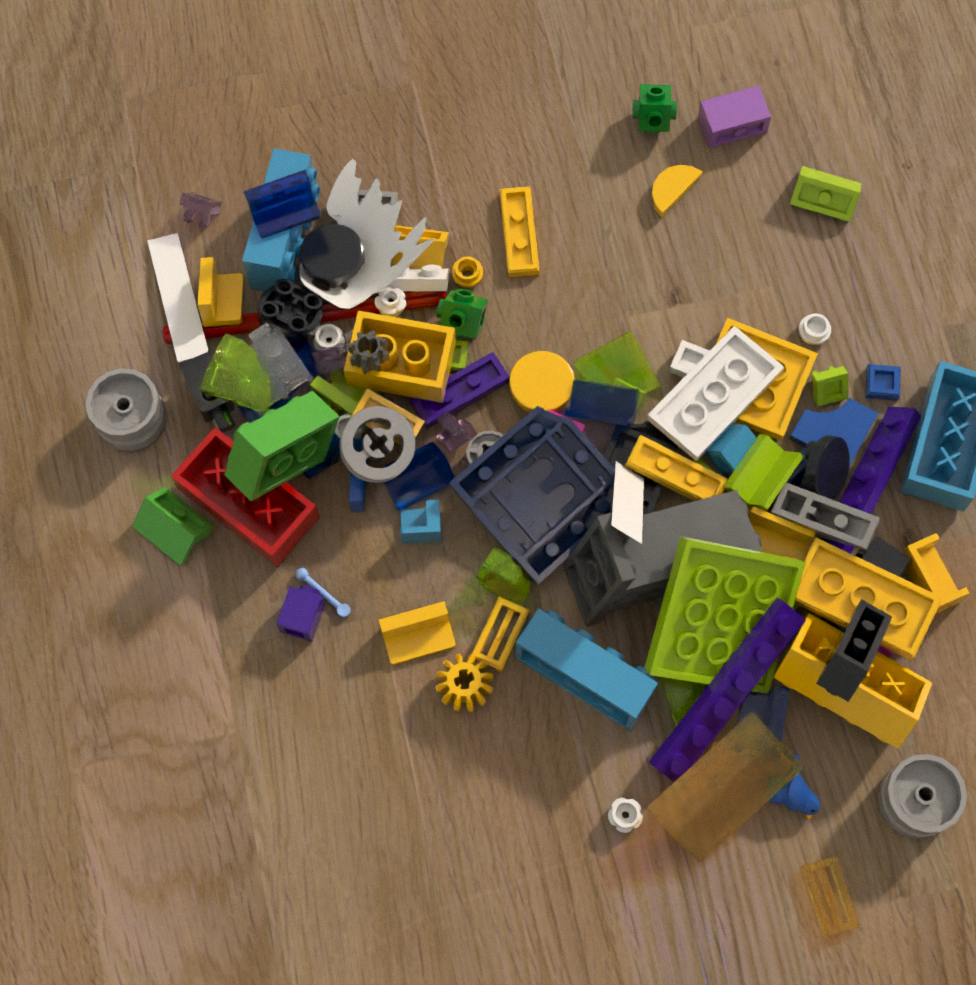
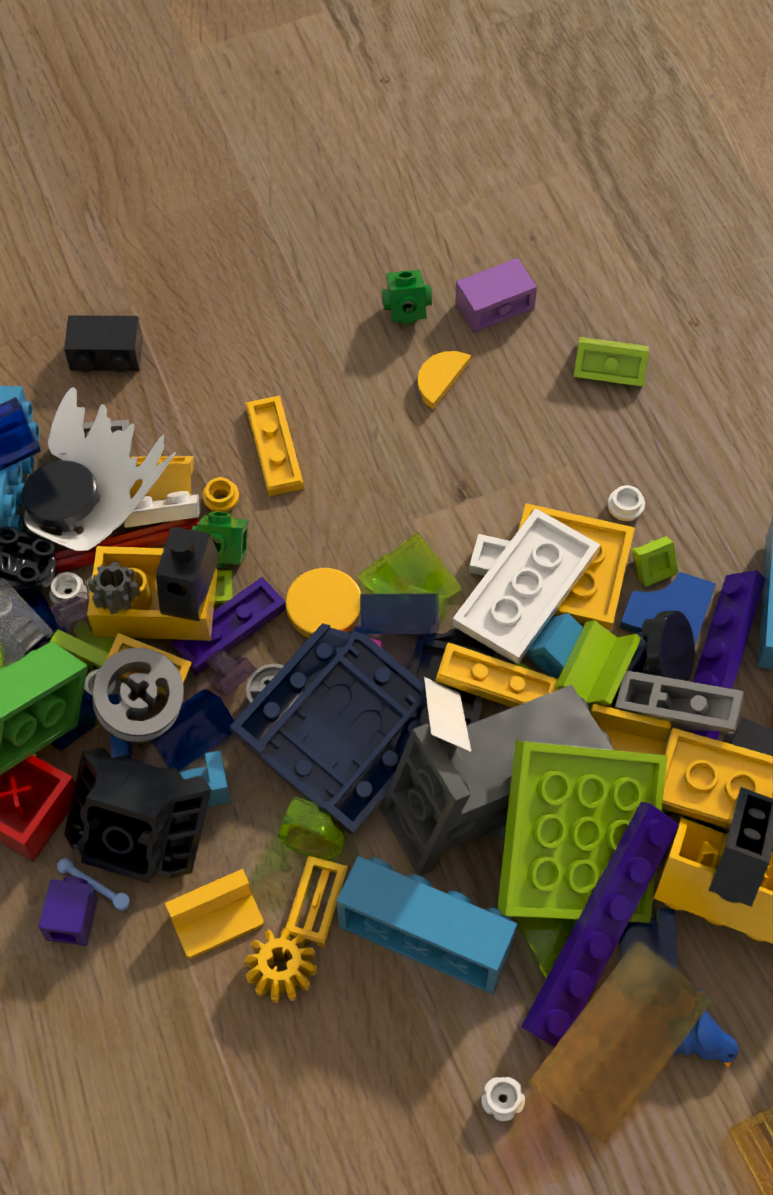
camera: 10 degrees left, 10 degrees down
(363, 544) = (135, 816): none -> black slope
(384, 116) = (103, 343): none -> black brick
(390, 308) = (142, 539): white plate -> none
(432, 343) = (186, 561): none -> black torso
(882, 382) = (713, 550): blue tile -> none

